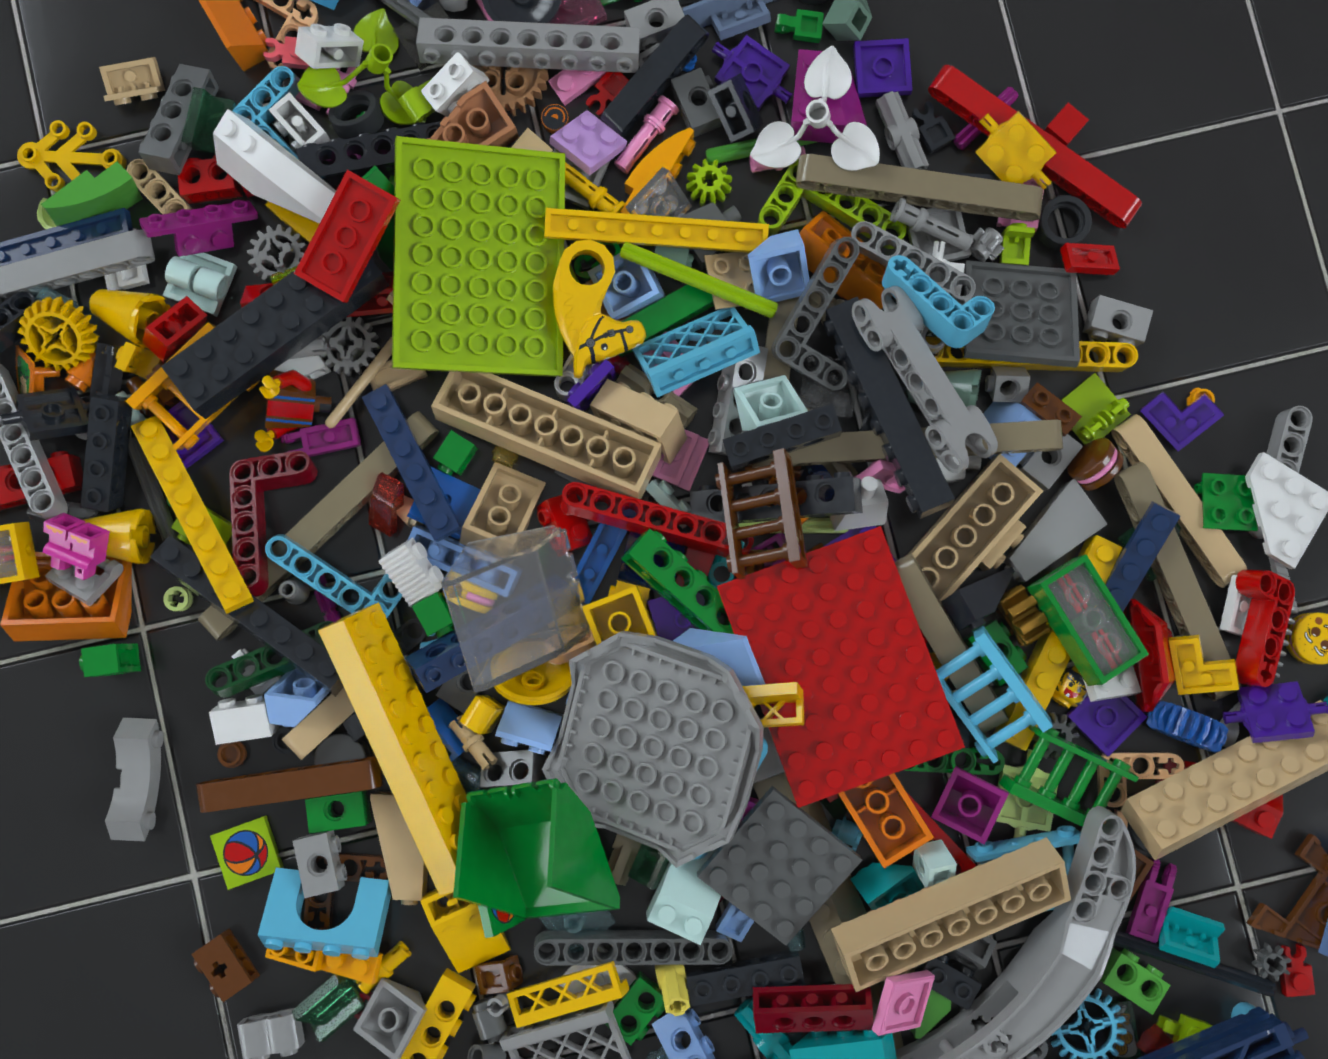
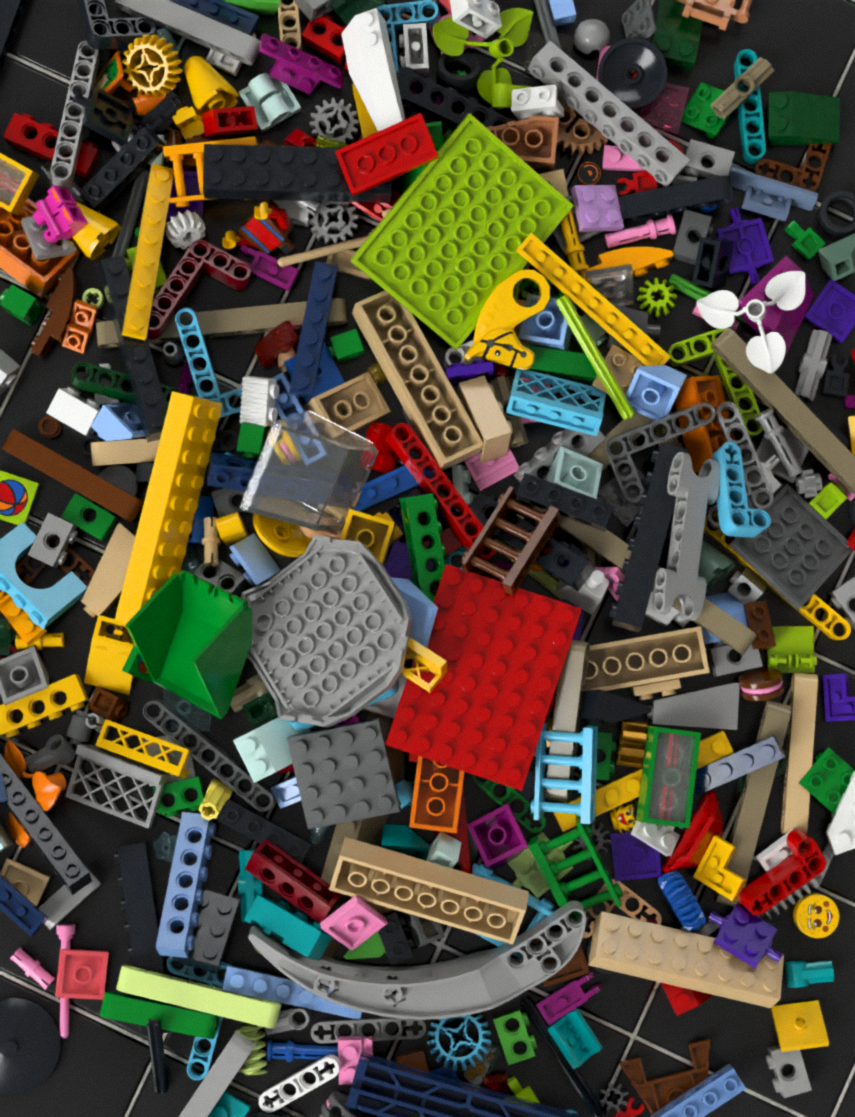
camera: 40 degrees right, 0 degrees up
(152, 627) = (61, 305): none -> reddish brown slope
(186, 634) = (80, 326): none -> orange slope
(212, 463) = (185, 229): none -> white gear

